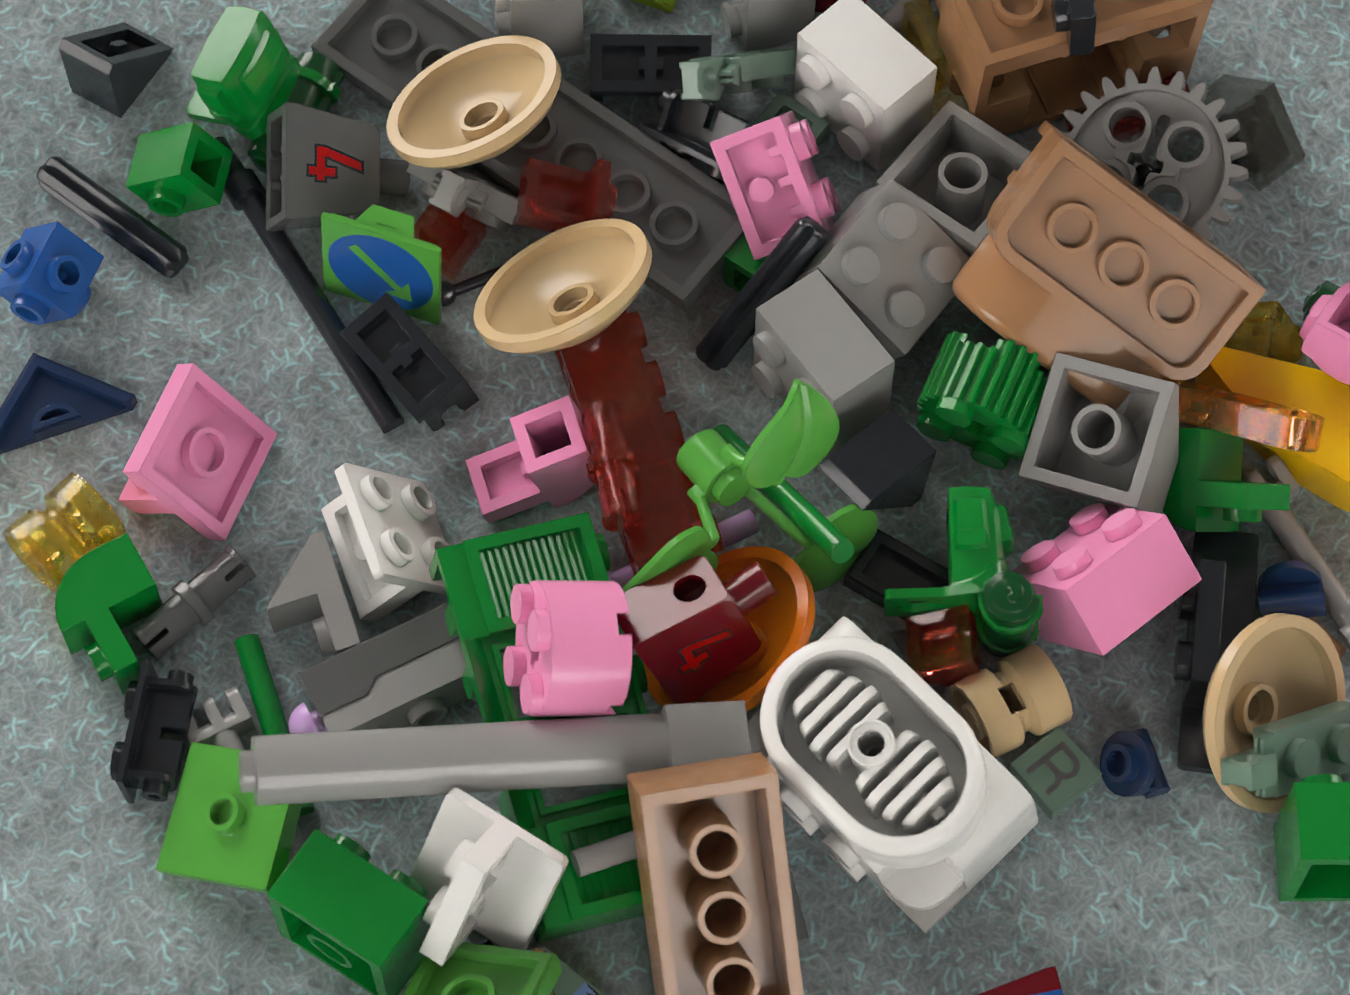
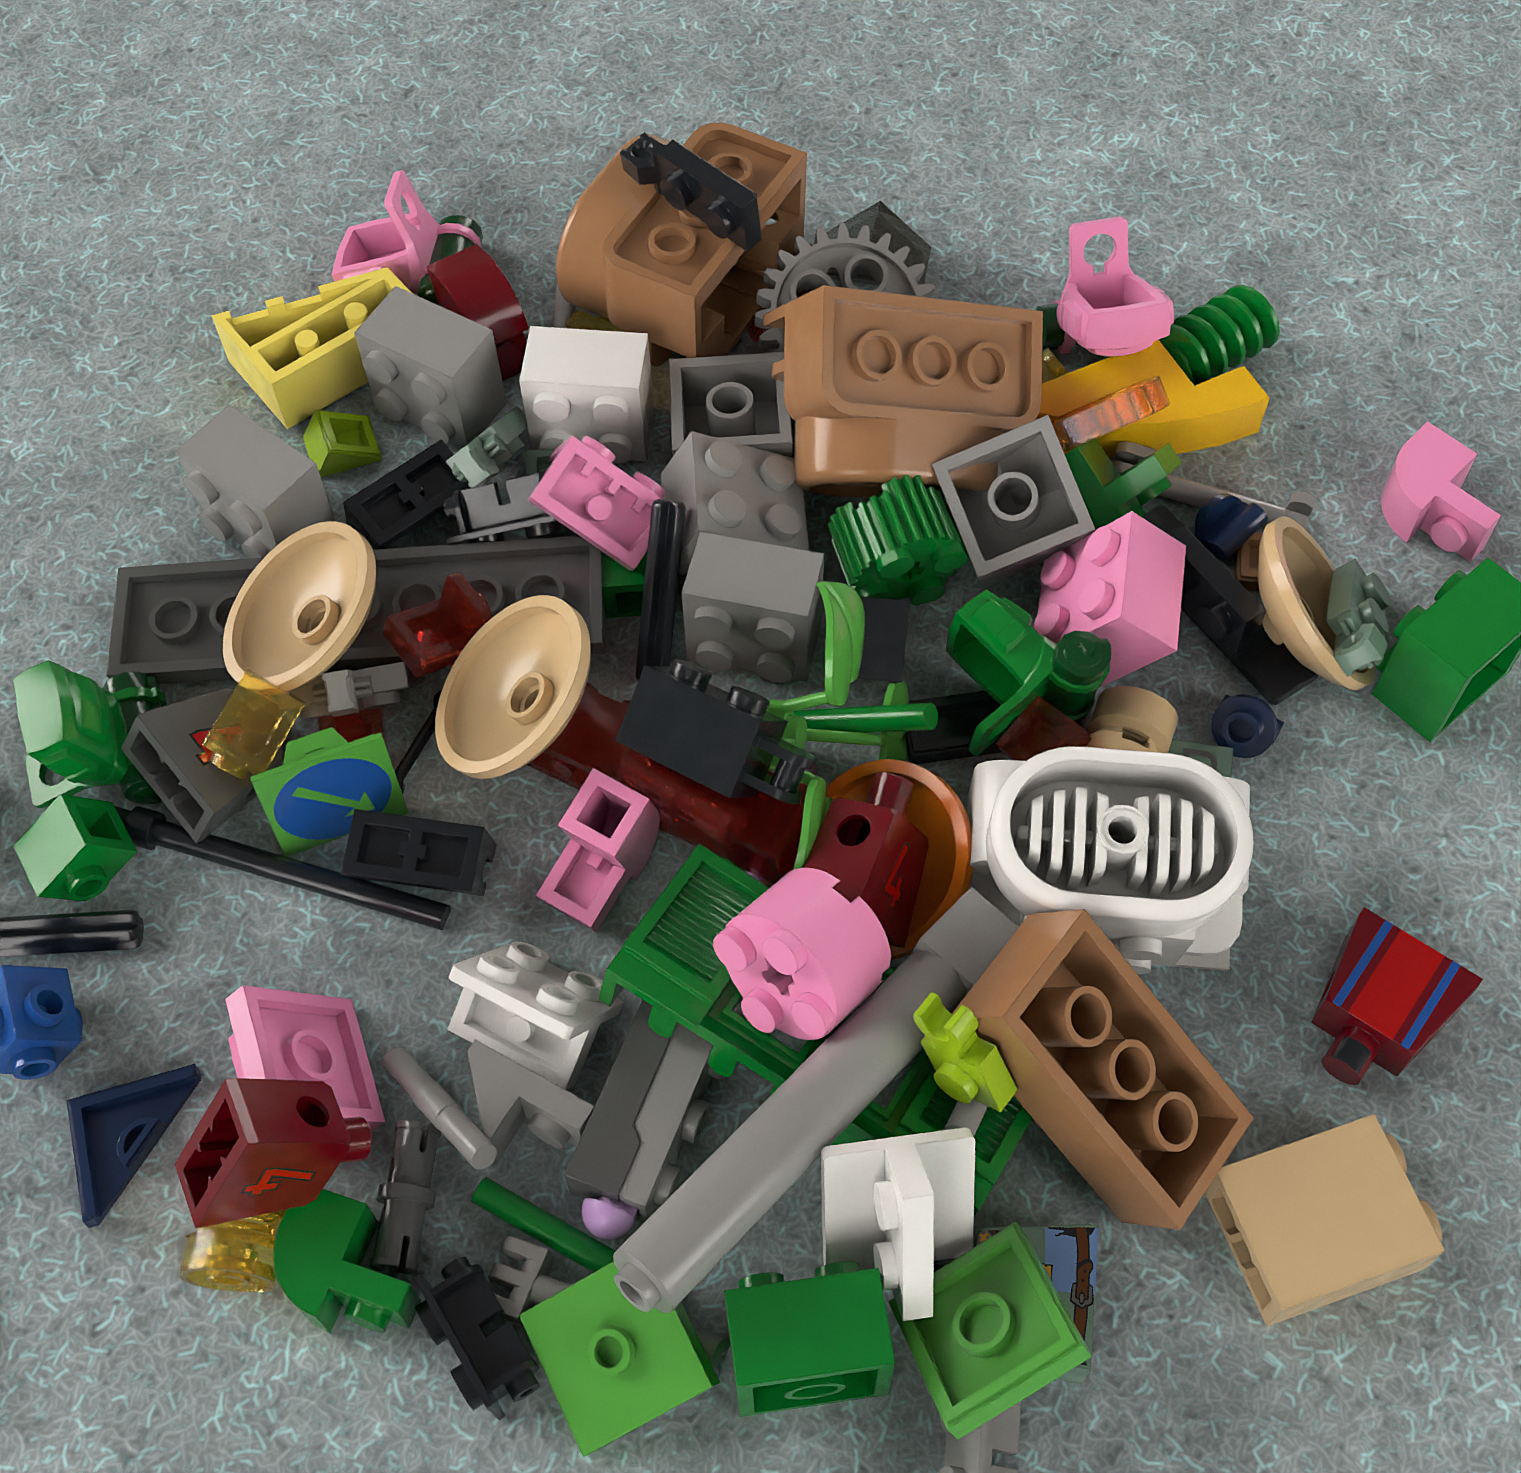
camera: 40 degrees left, 5 degrees down
(114, 491) = (266, 1149): none -> dark red torso
(262, 558) = (440, 1108): none -> light grey piece
(361, 172) = (252, 726): none -> clear yellow bracket
(610, 818) = (963, 1062): none -> lime plate
(660, 436) = (712, 734): none -> black brick

